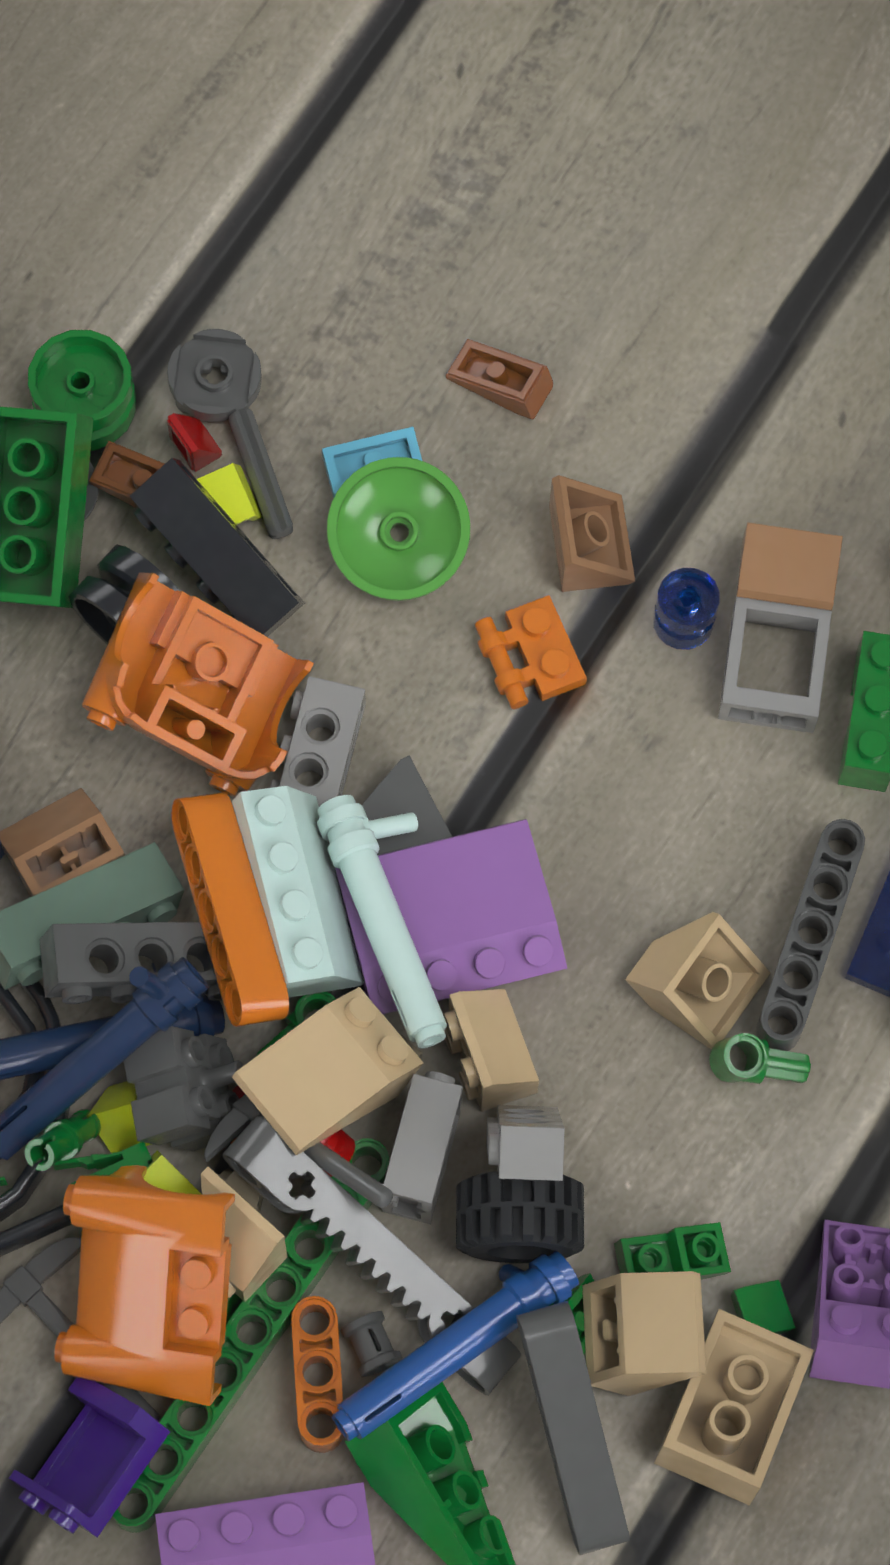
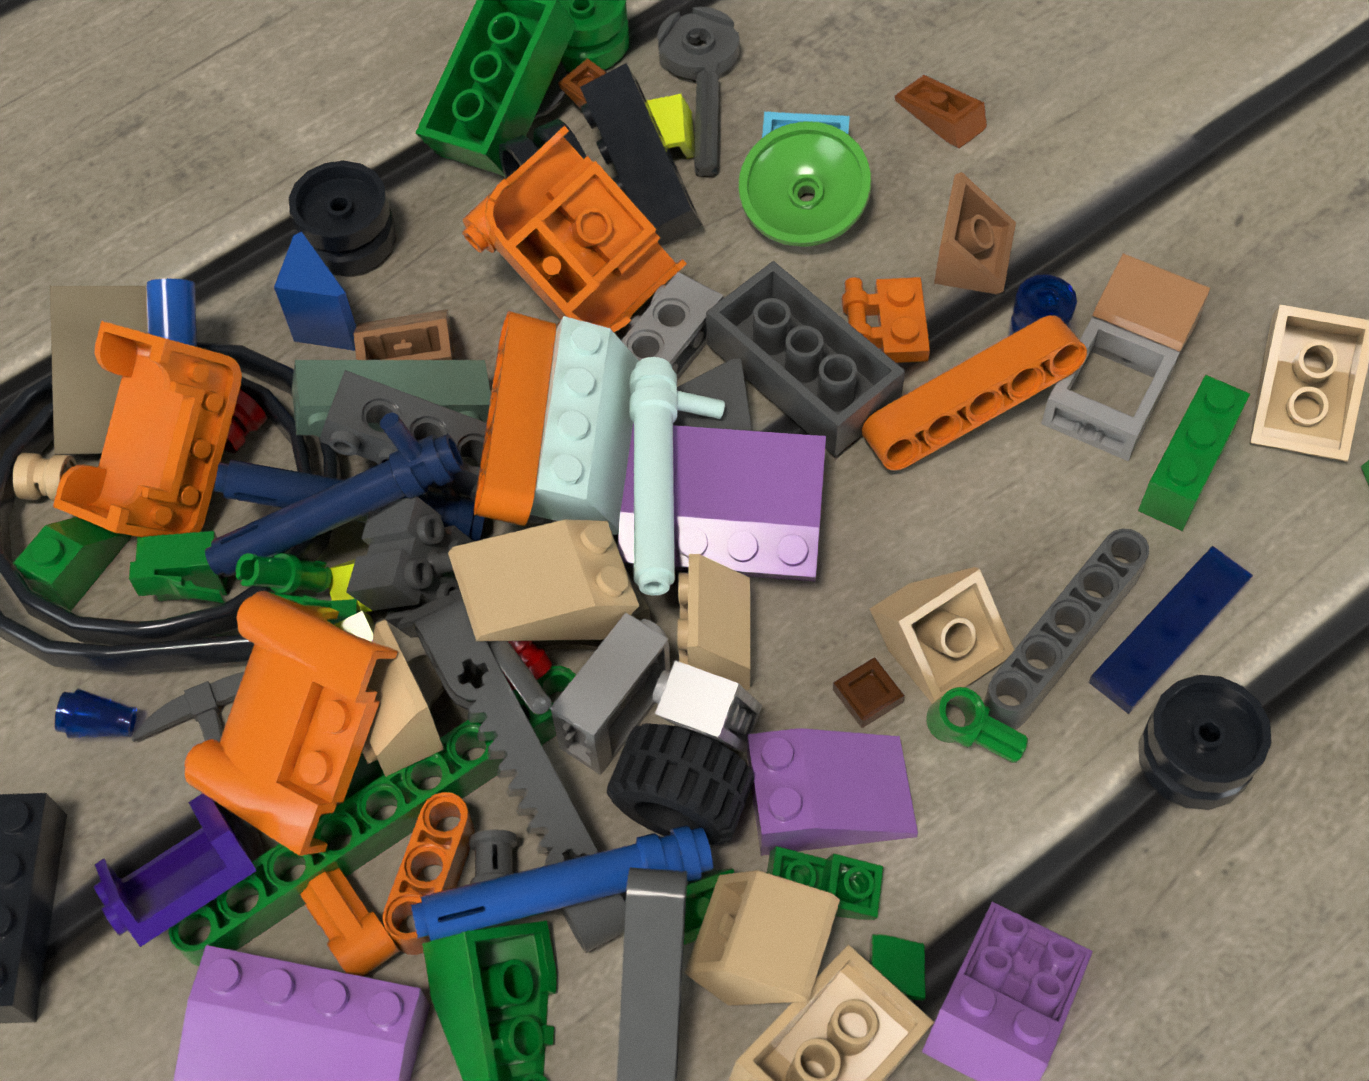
camera: 25 degrees right, 10 degrees down
(192, 441) = (657, 78): red slope -> none
(275, 1454) = (353, 932): none -> orange piece
(468, 730) = (803, 356): none -> dark grey brick
(648, 719) = (974, 392): none -> orange beam
(648, 1059) = (868, 692): none -> reddish brown tile
(648, 1168) = (828, 789): none -> medium lavender slope

